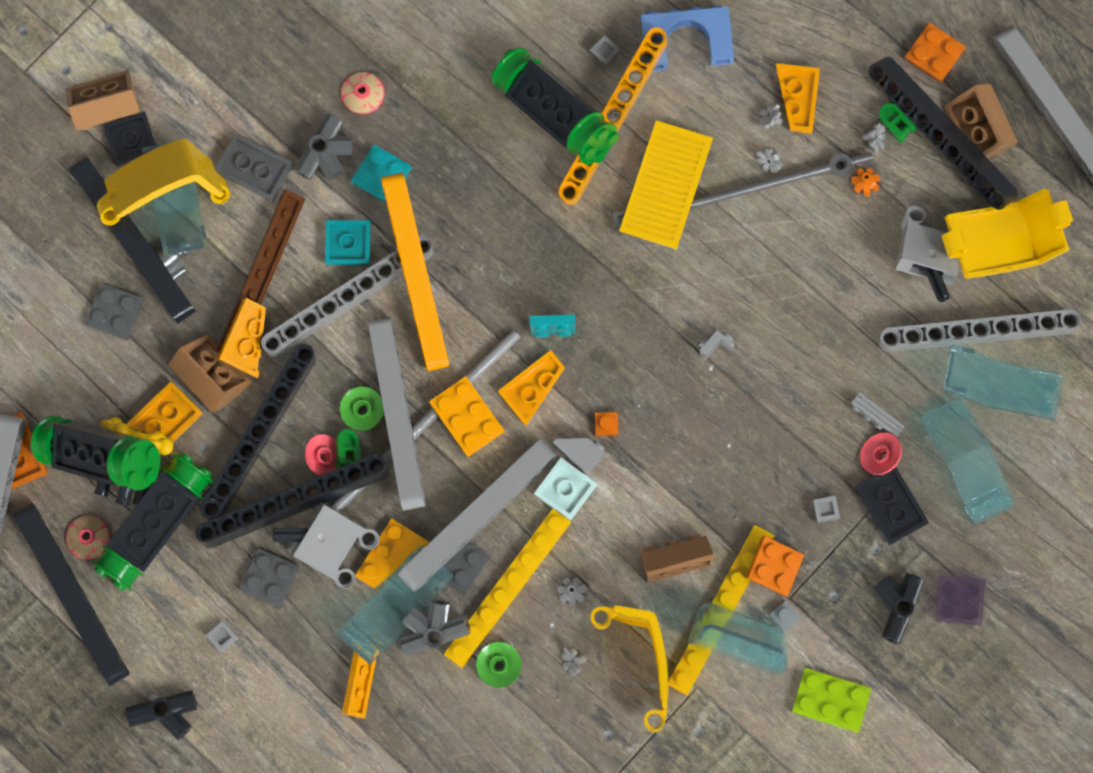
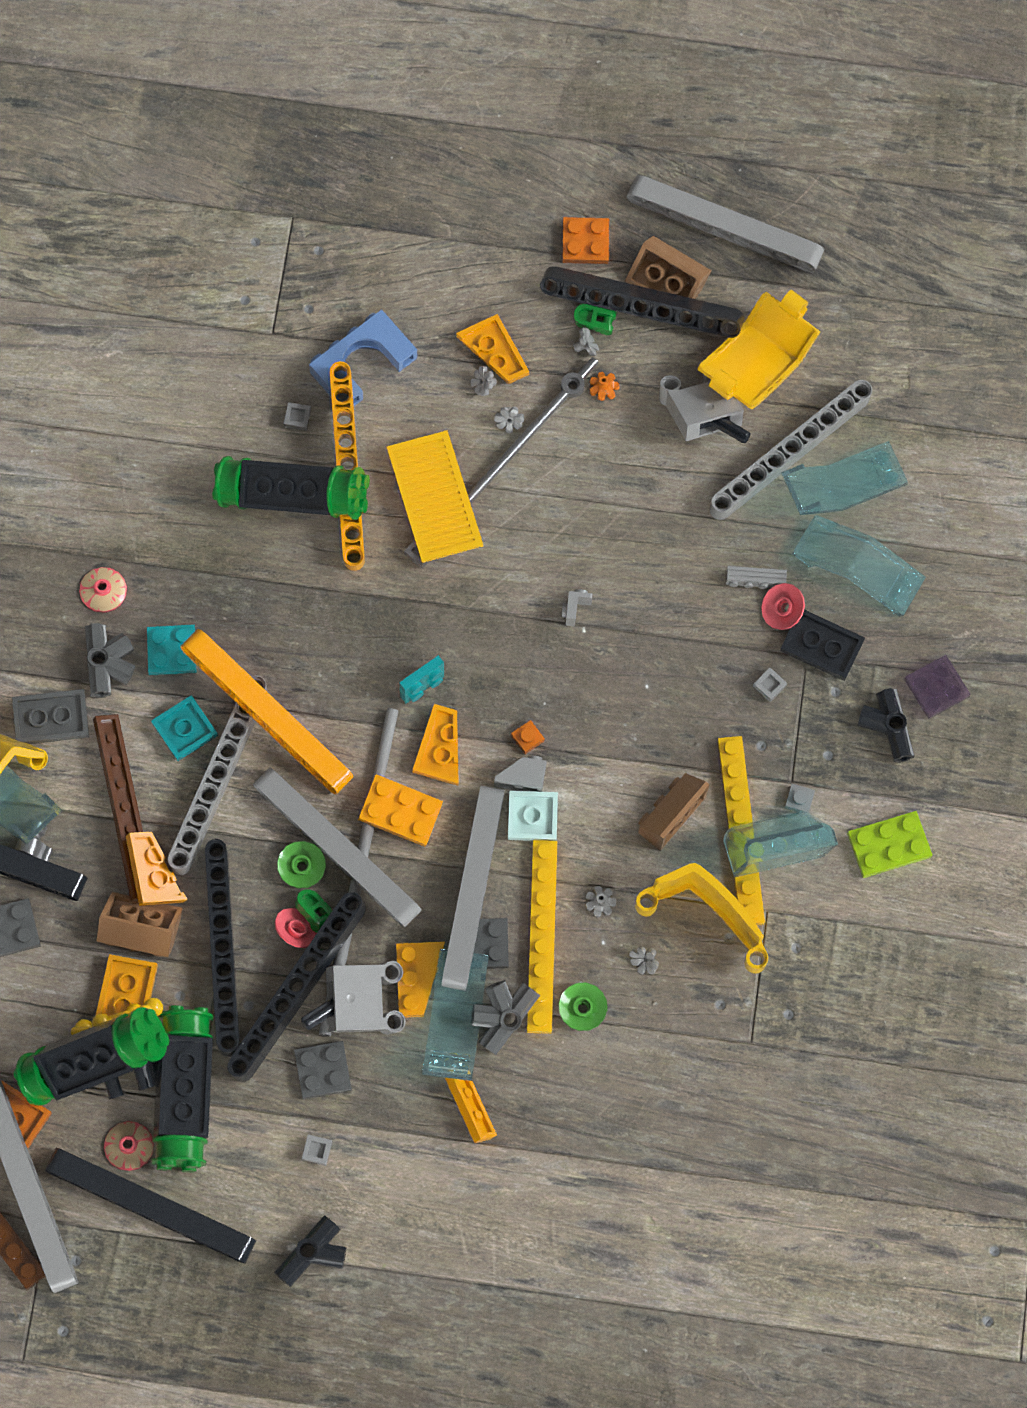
camera: 45 degrees left, 5 degrees down
(774, 566) = (761, 761): orange plate -> none

